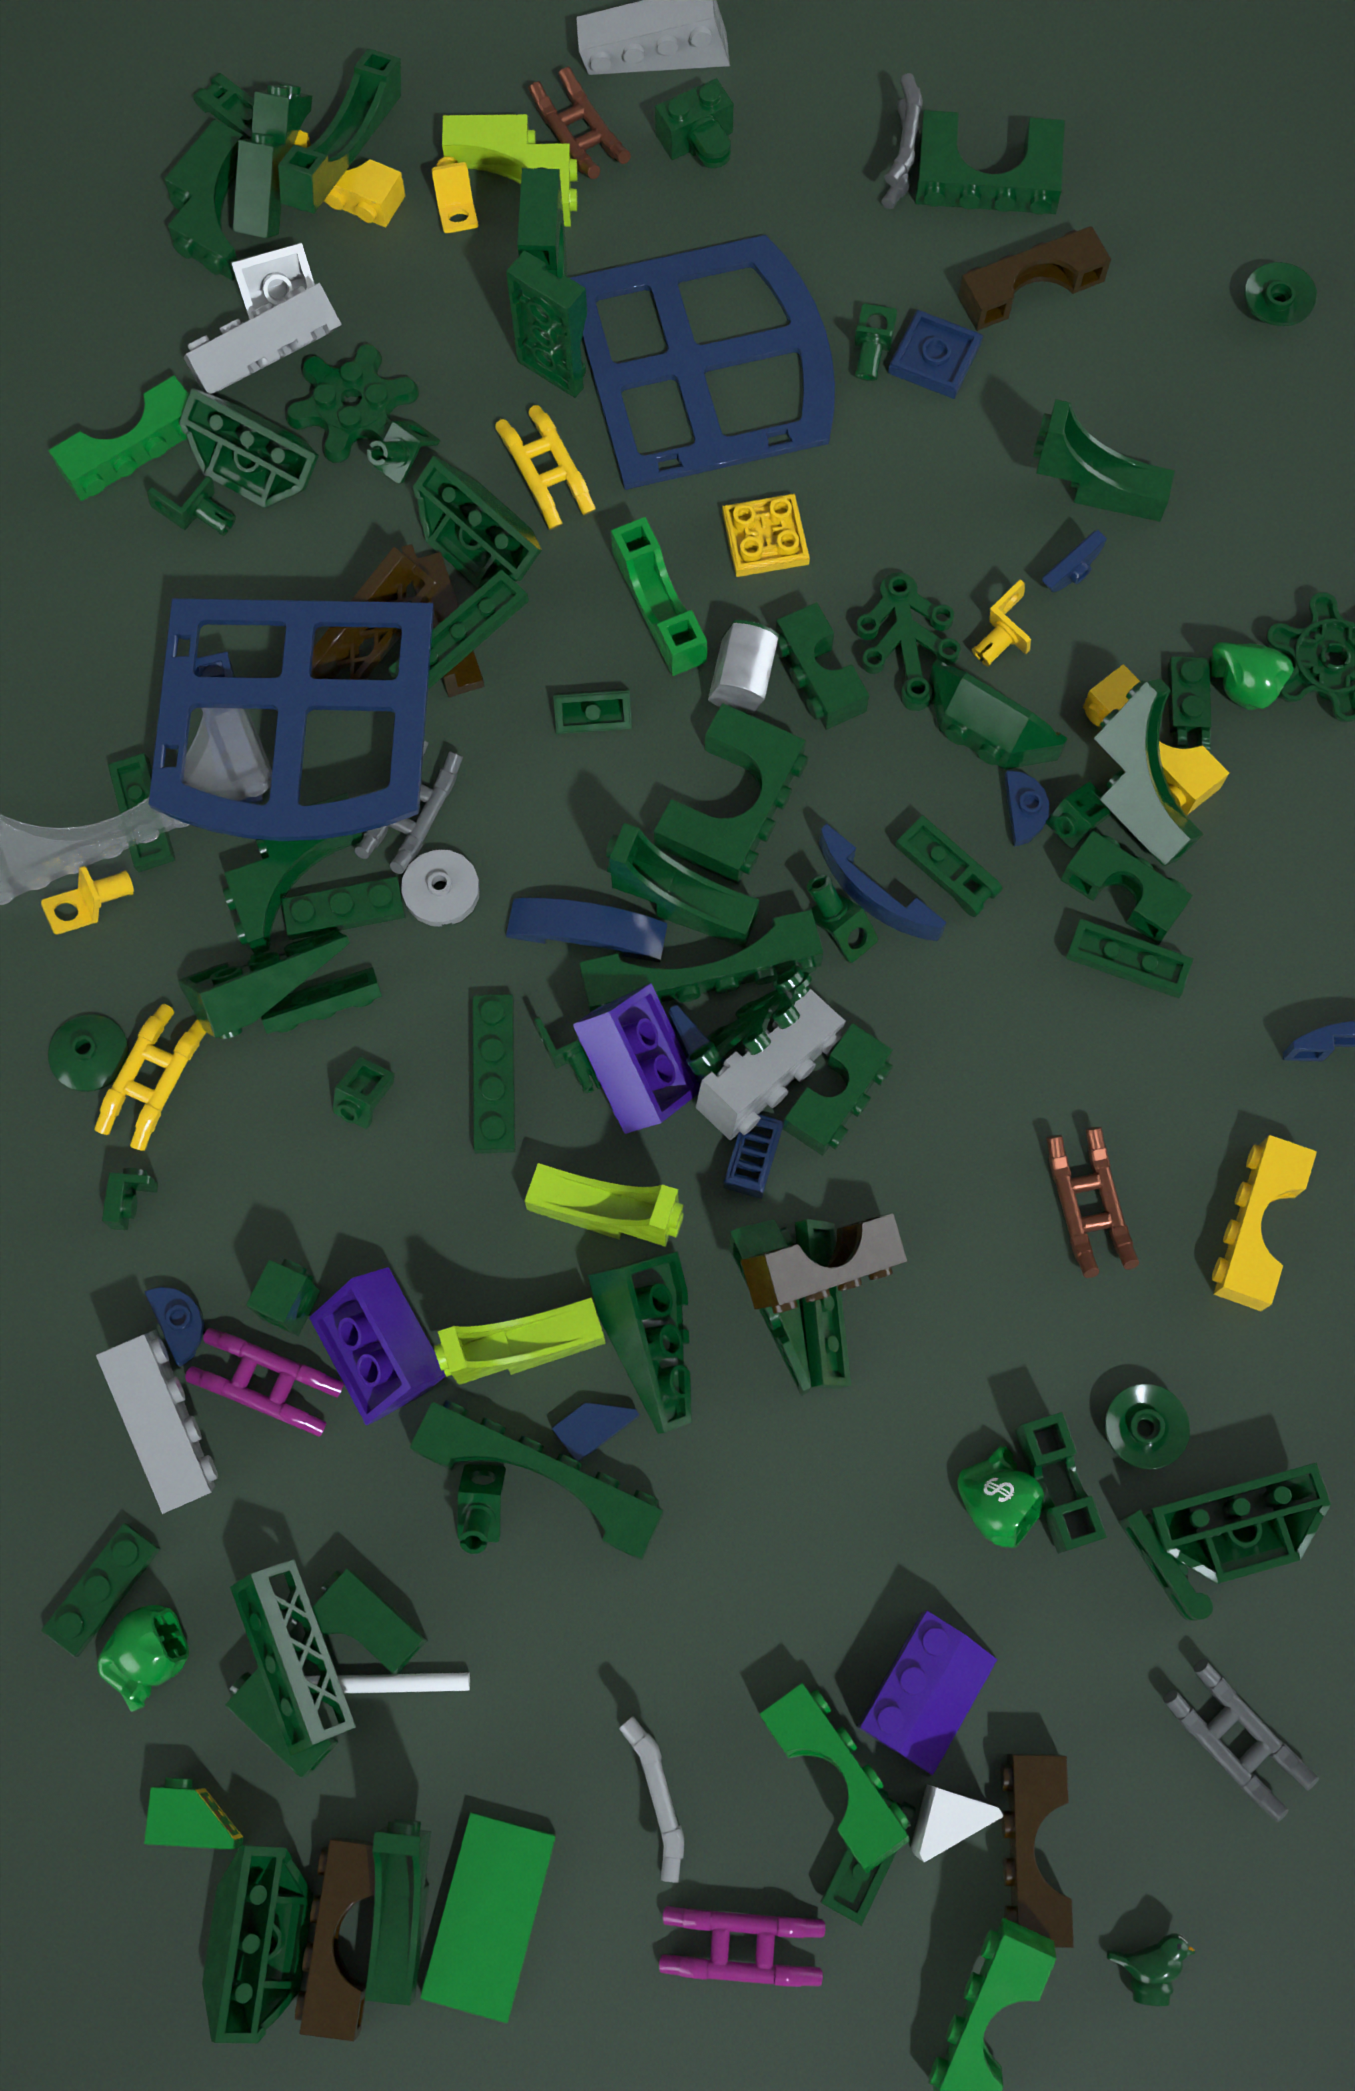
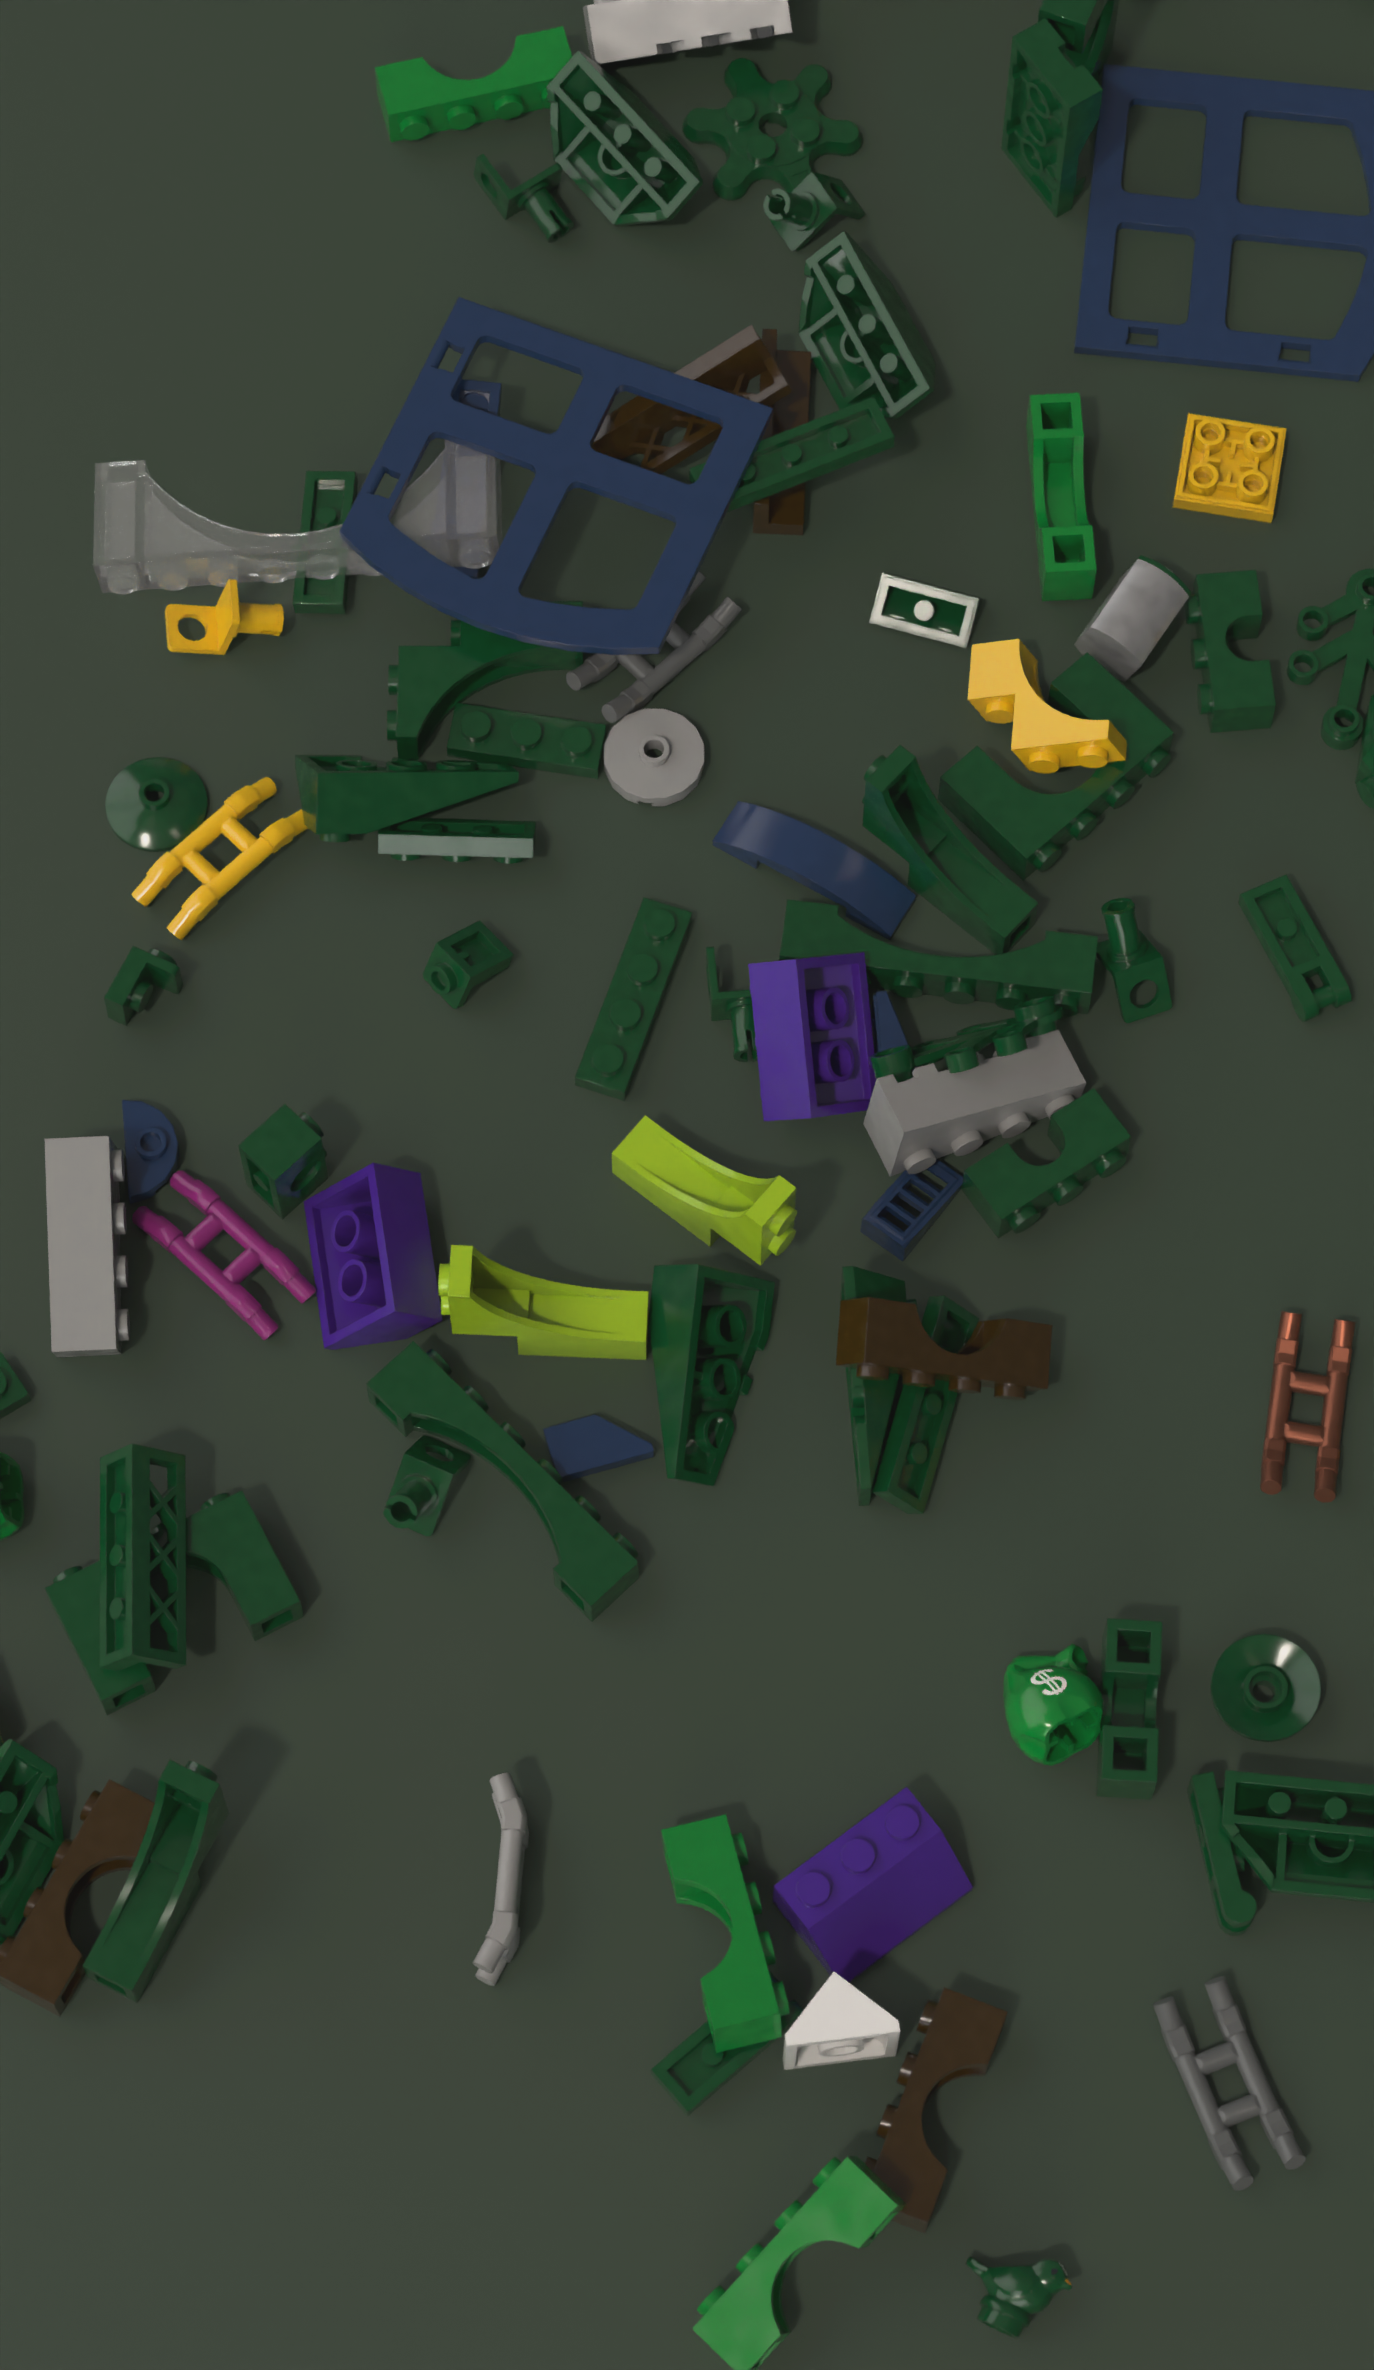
camera: 20 degrees right, 5 degrees down
(401, 1682) = (259, 1651): white bar -> none
(488, 1917) = (257, 1942): green tile -> none
(540, 482) = (967, 308): yellow piece -> none
(717, 777) = (1008, 690): none -> yellow arch
(718, 1965) = (554, 2116): magenta piece -> none
(914, 920) = (1222, 994): dark blue slope -> none

